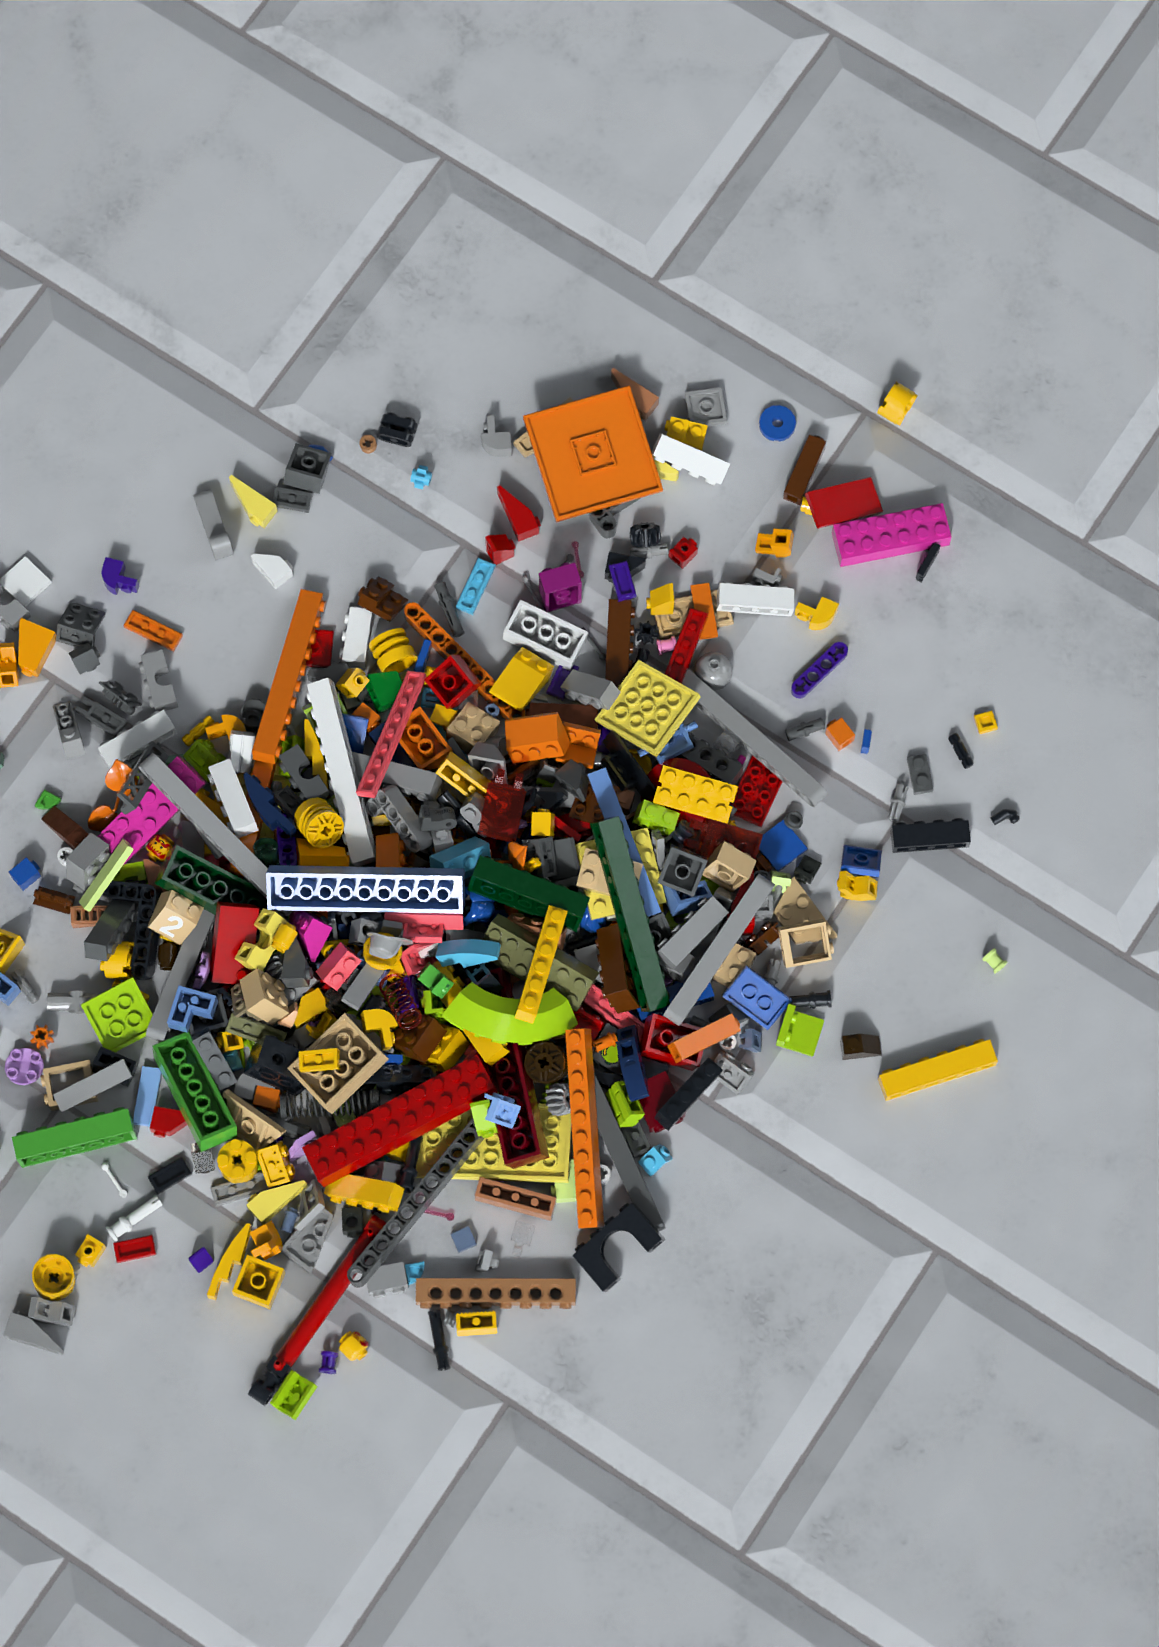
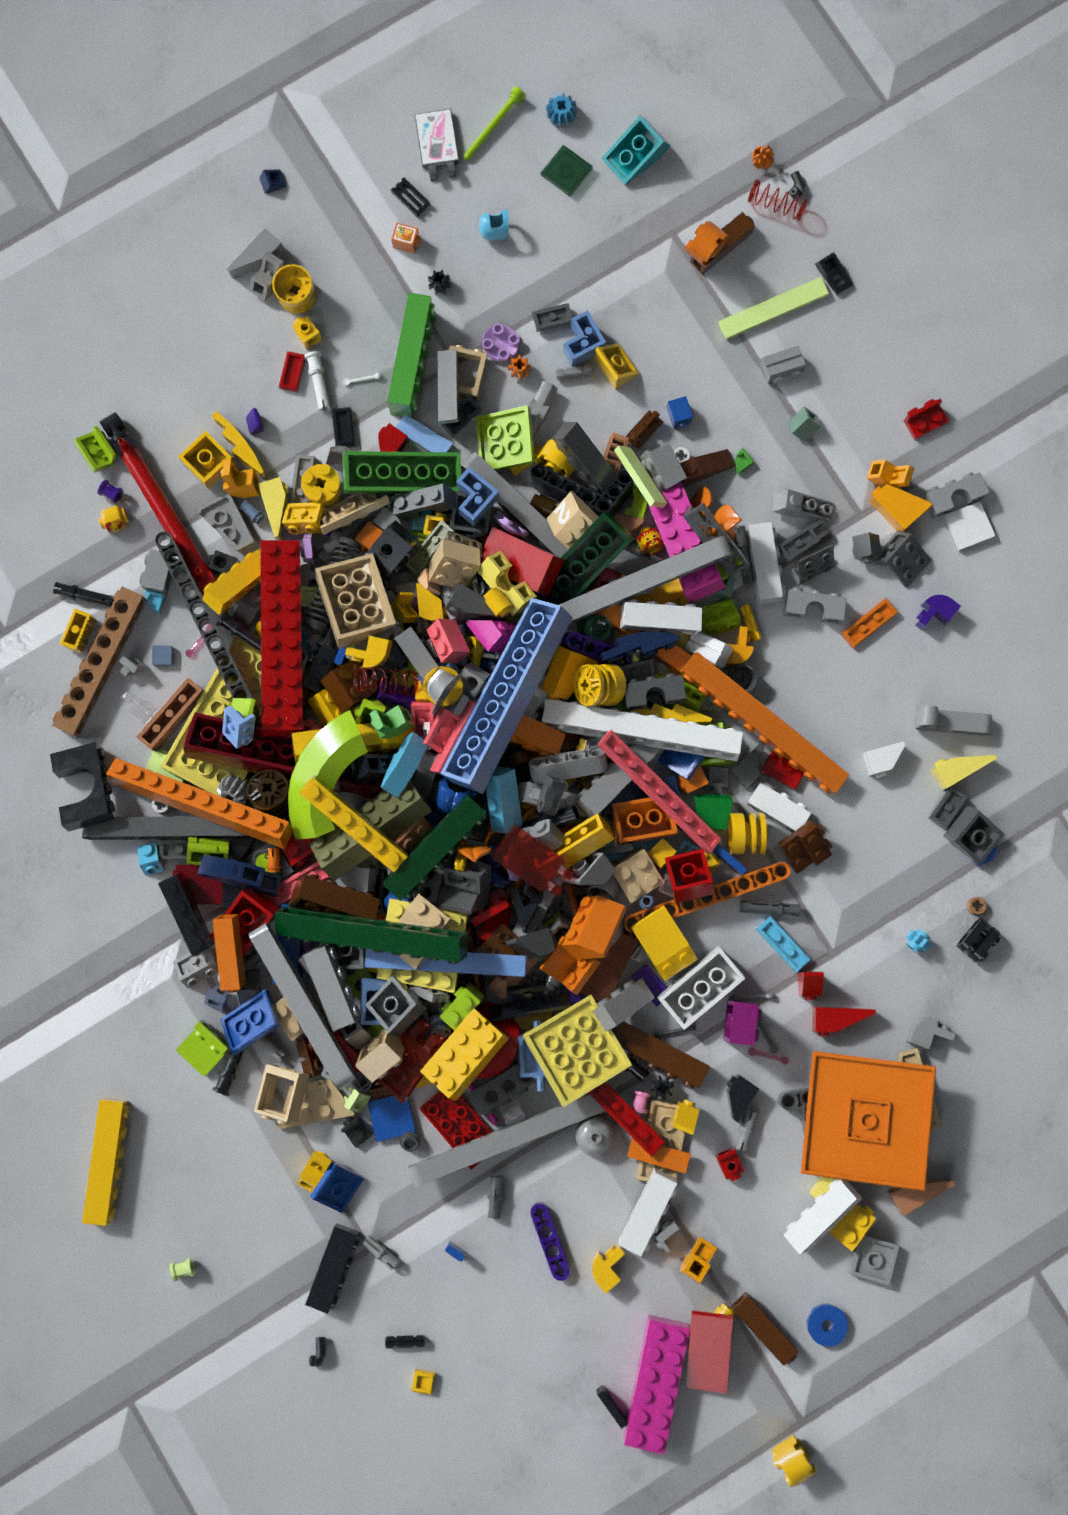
camera: 115 degrees right, 10 degrees up
(310, 1204) = (252, 531): light grey wing -> none
(319, 1060) = (361, 580): yellow plate -> none
(352, 682) = (731, 781): yellow brick -> none
(450, 1317) = (96, 612): dark grey bush -> none
(542, 823) = (497, 891): yellow brick -> none
(622, 581) = (722, 1087): dark purple tile -> none
(645, 535) = (762, 1133): black gear -> none
(839, 733) = (475, 1229): orange brick -> none
(860, 1046) = (162, 1098): dark brown slope -> none
(919, 774) = (400, 1288): dark grey plate -> none

